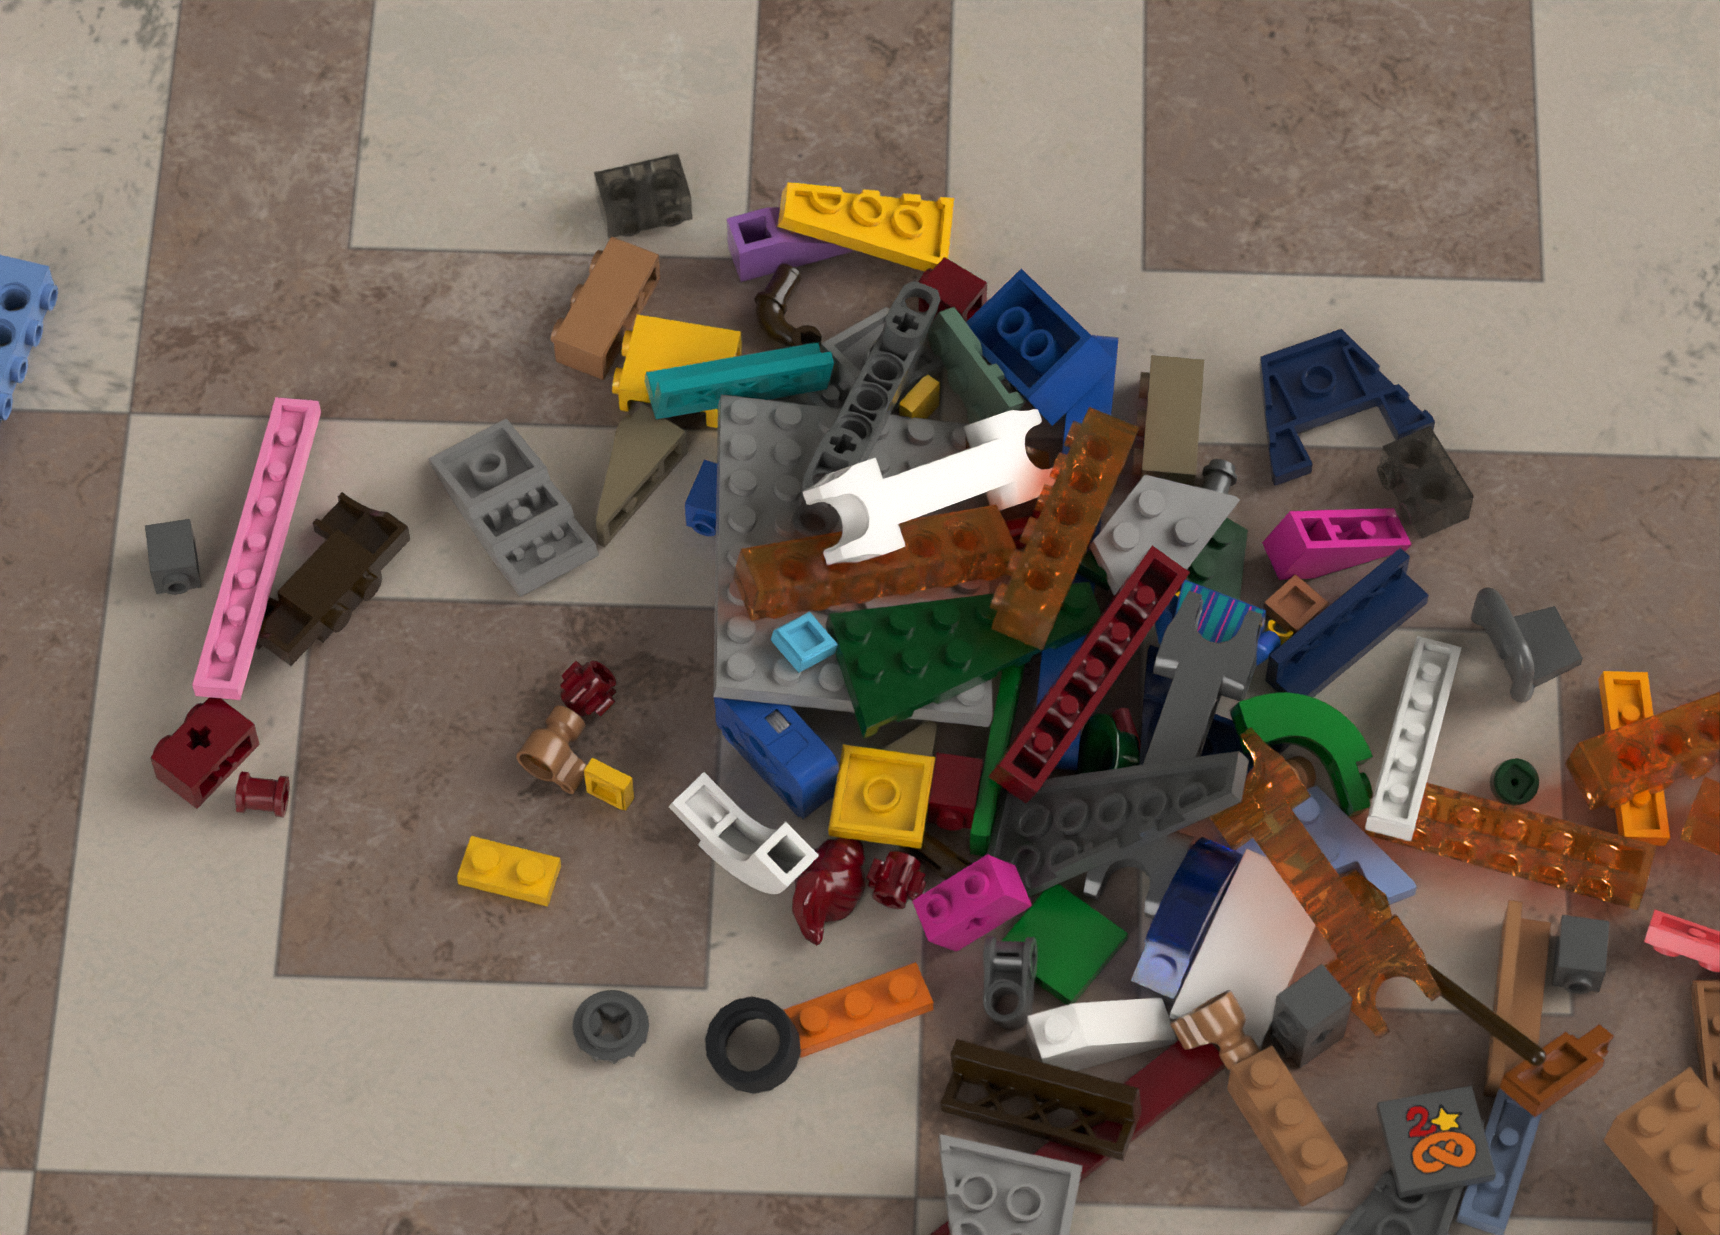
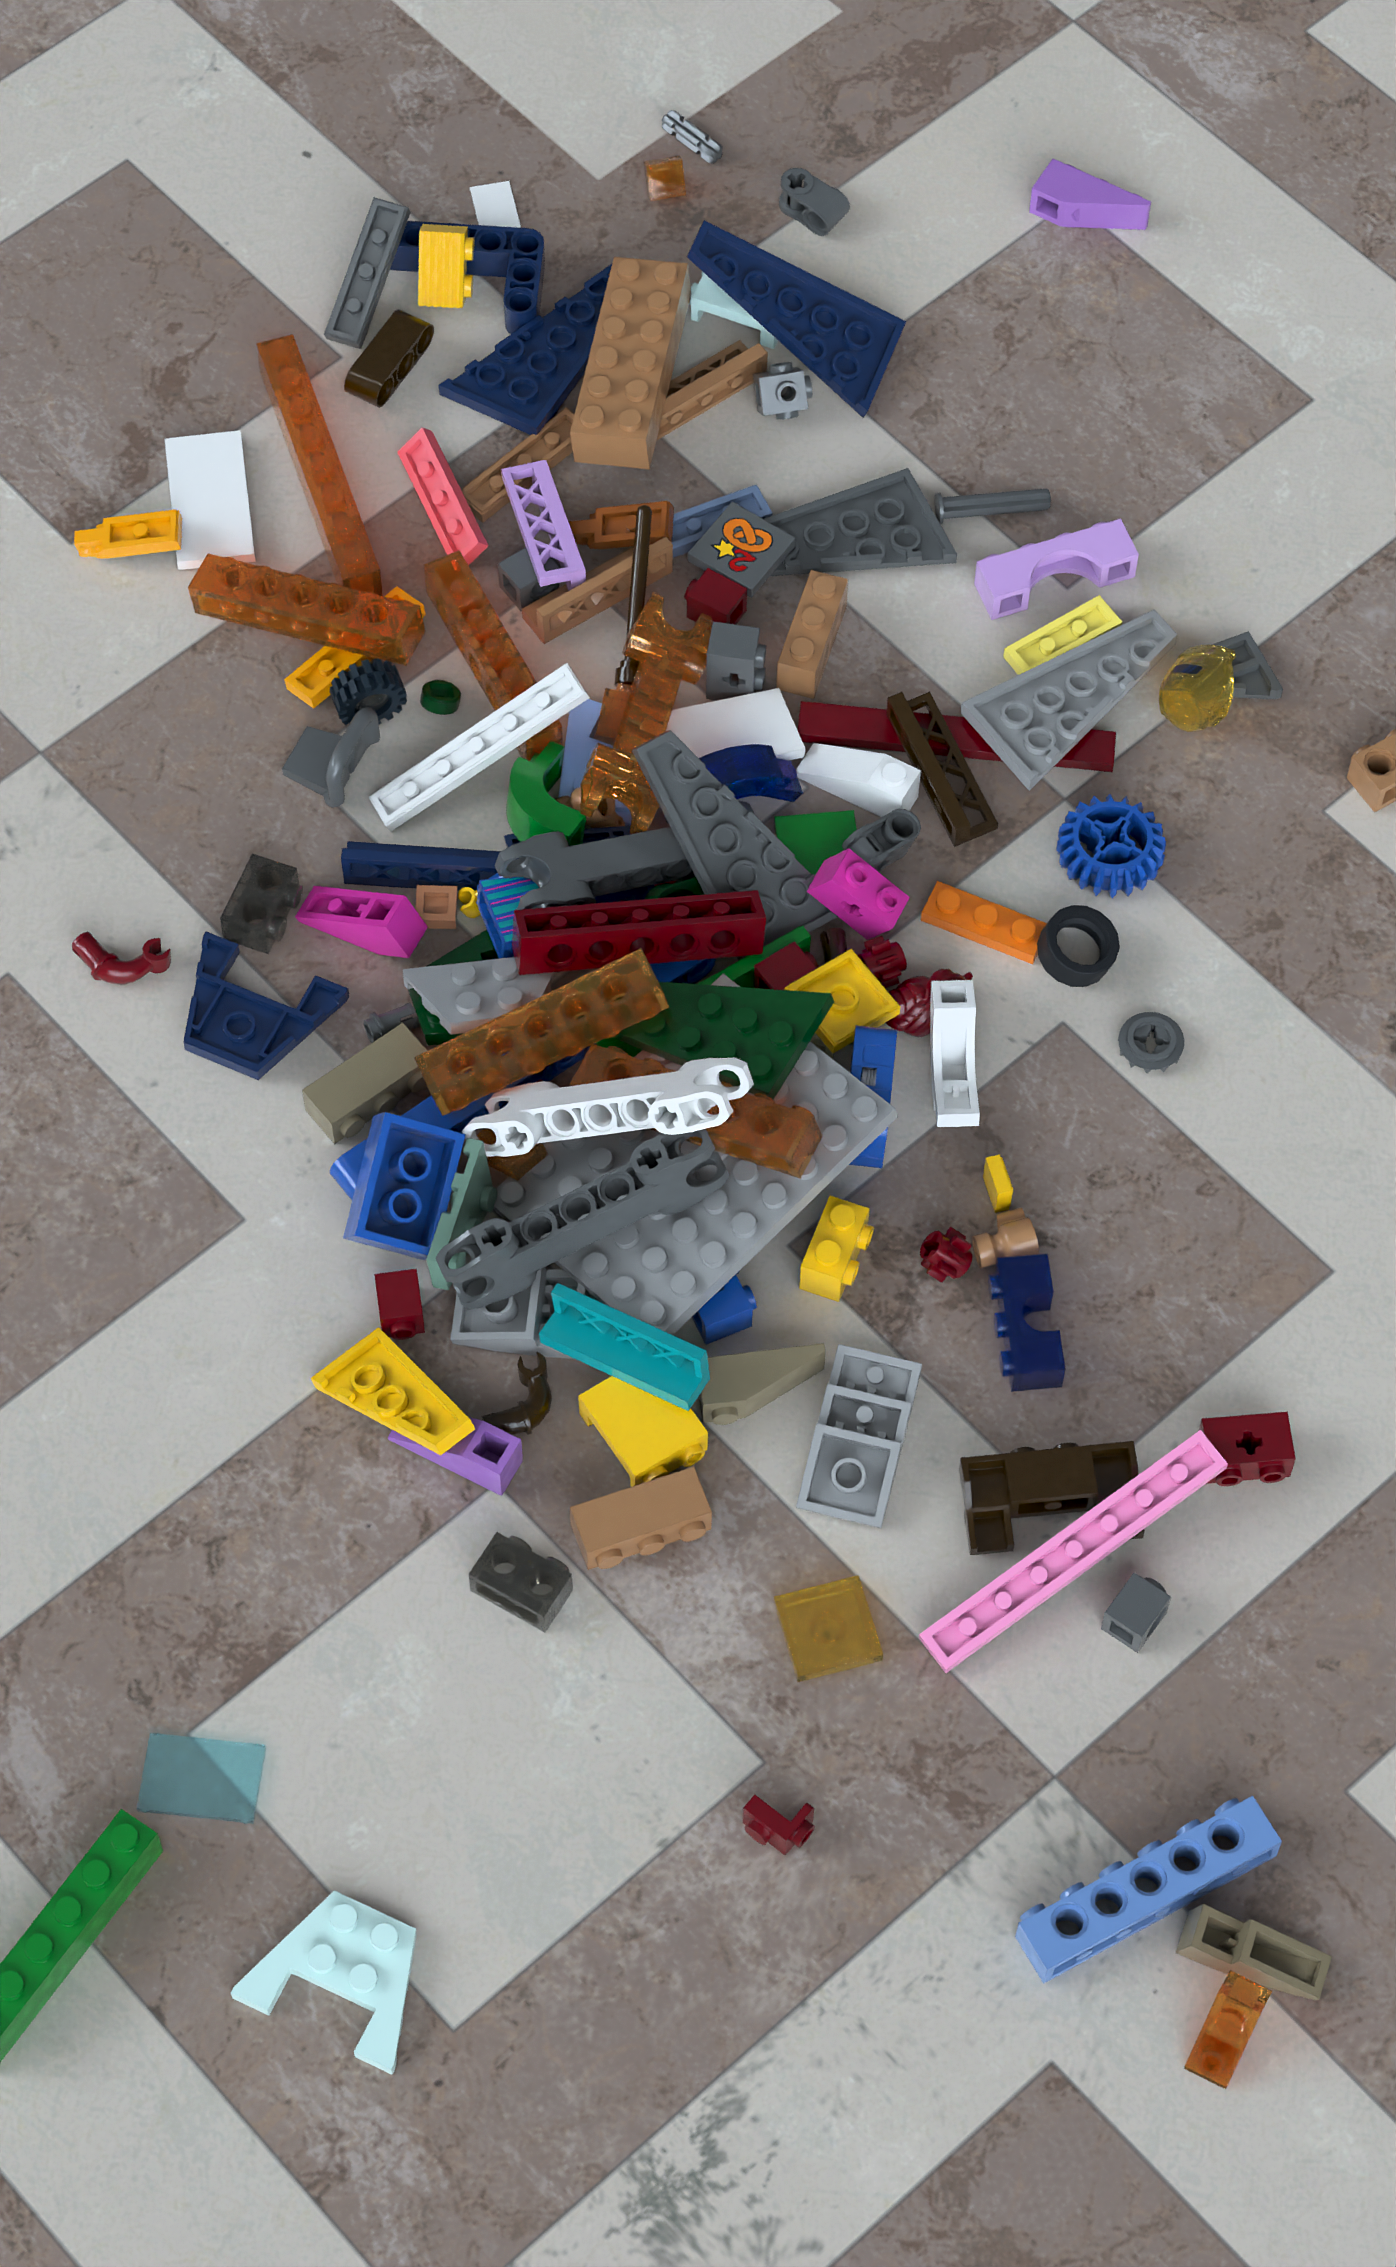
camera: 135 degrees left, 0 degrees up
(262, 794) = (1234, 1384): dark red bush -> none
(291, 198) = (769, 1826): none -> dark red bracket
(394, 362) = (828, 1628): none -> clear yellow tile
(445, 671) = (1030, 1356): none -> clear blue arch
(509, 871) = (1116, 1196): yellow plate -> none
(677, 614) = (834, 1249): none -> yellow brick
(803, 1173) = (1114, 863): none -> blue gear
(804, 642) = (805, 1088): medium azure tile -> none
(1218, 1022) = (790, 706): medium nougat piece -> none
(1402, 1074) = (716, 597): none -> dark red brick
(1470, 338) = (110, 969): none -> dark red piece
(1562, 711) = (369, 686): none -> black bush
(1602, 1007) = (551, 520): none -> lavender fence

